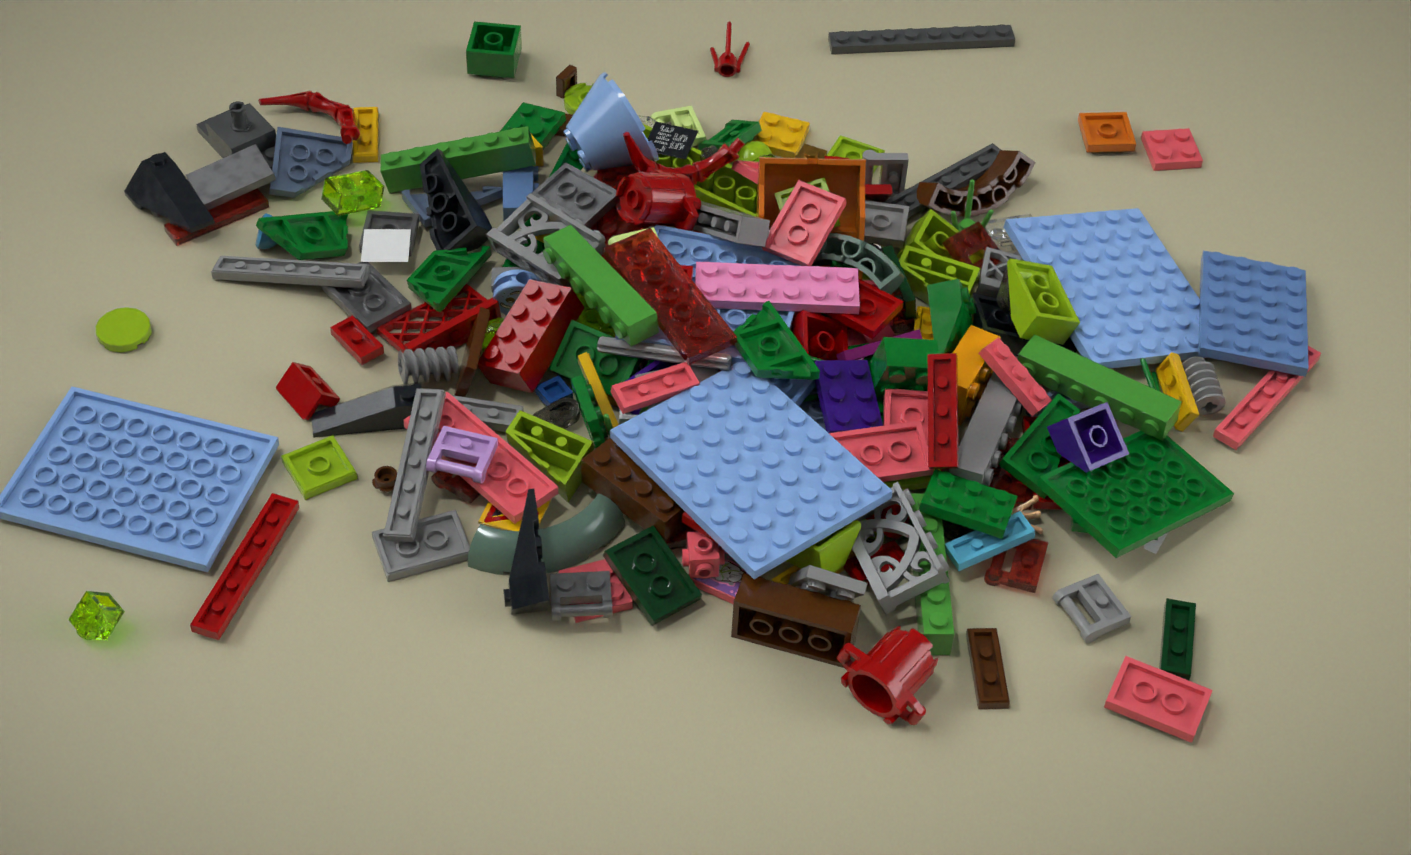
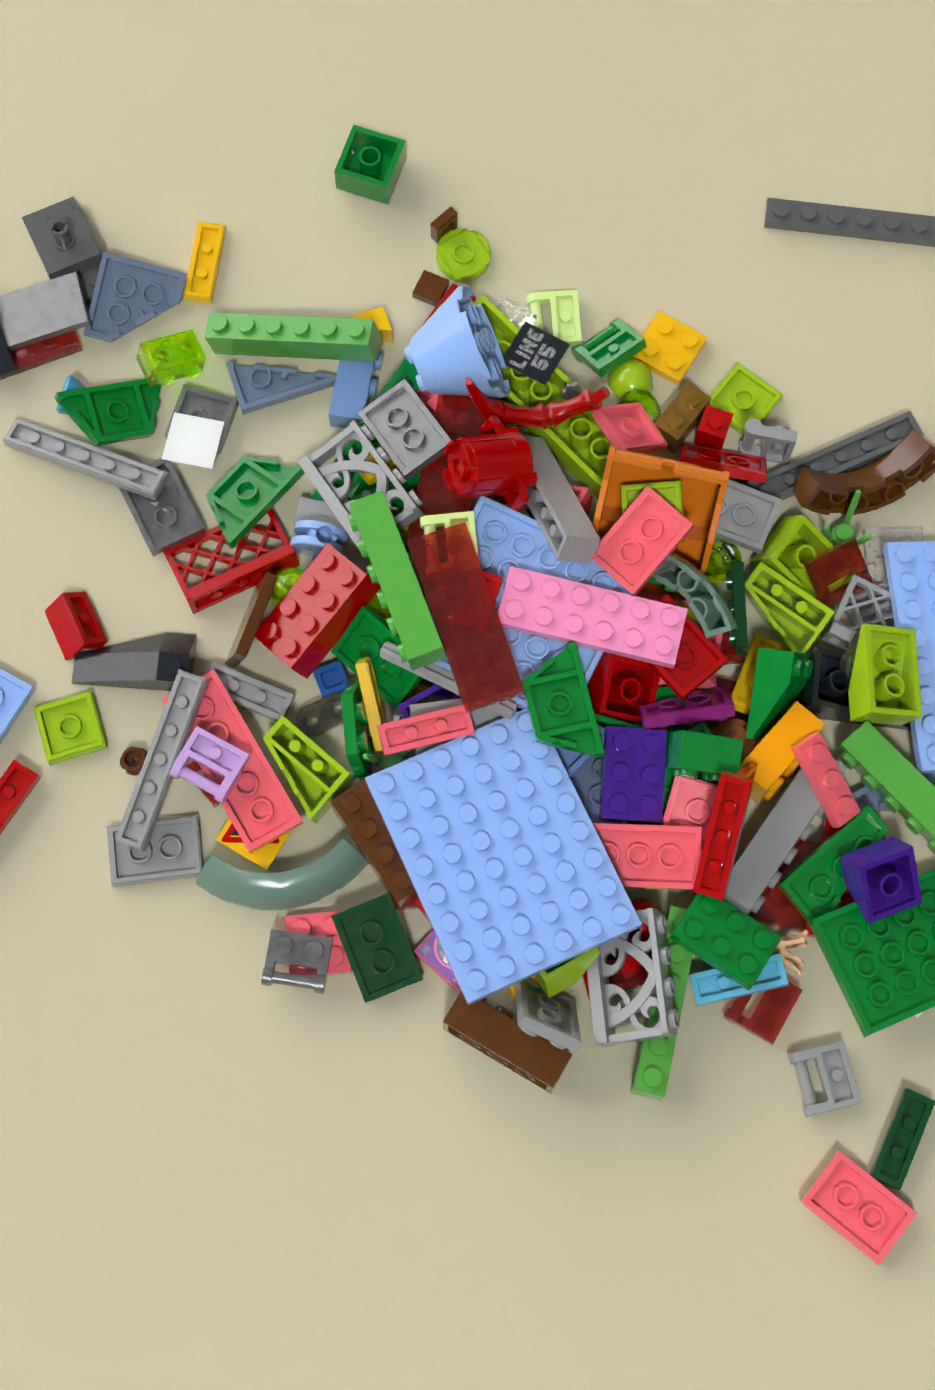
camera: 15 degrees right, 25 degrees up
(318, 103) = (159, 209): red animal -> none
(357, 340) = (139, 565): red plate -> none
(427, 363) = (203, 620): light grey piece -> none
(453, 210) = (276, 412): black wedge -> none
(528, 574) = (246, 935): black wedge -> none
(541, 121) = (391, 285): green plate -> none
(702, 556) = (427, 953): coral brick -> none
(727, 63) = (636, 227): red plant -> none
(890, 674) = (587, 1127): red container -> none
(987, 668) = (694, 1127): reddish brown tile -> none

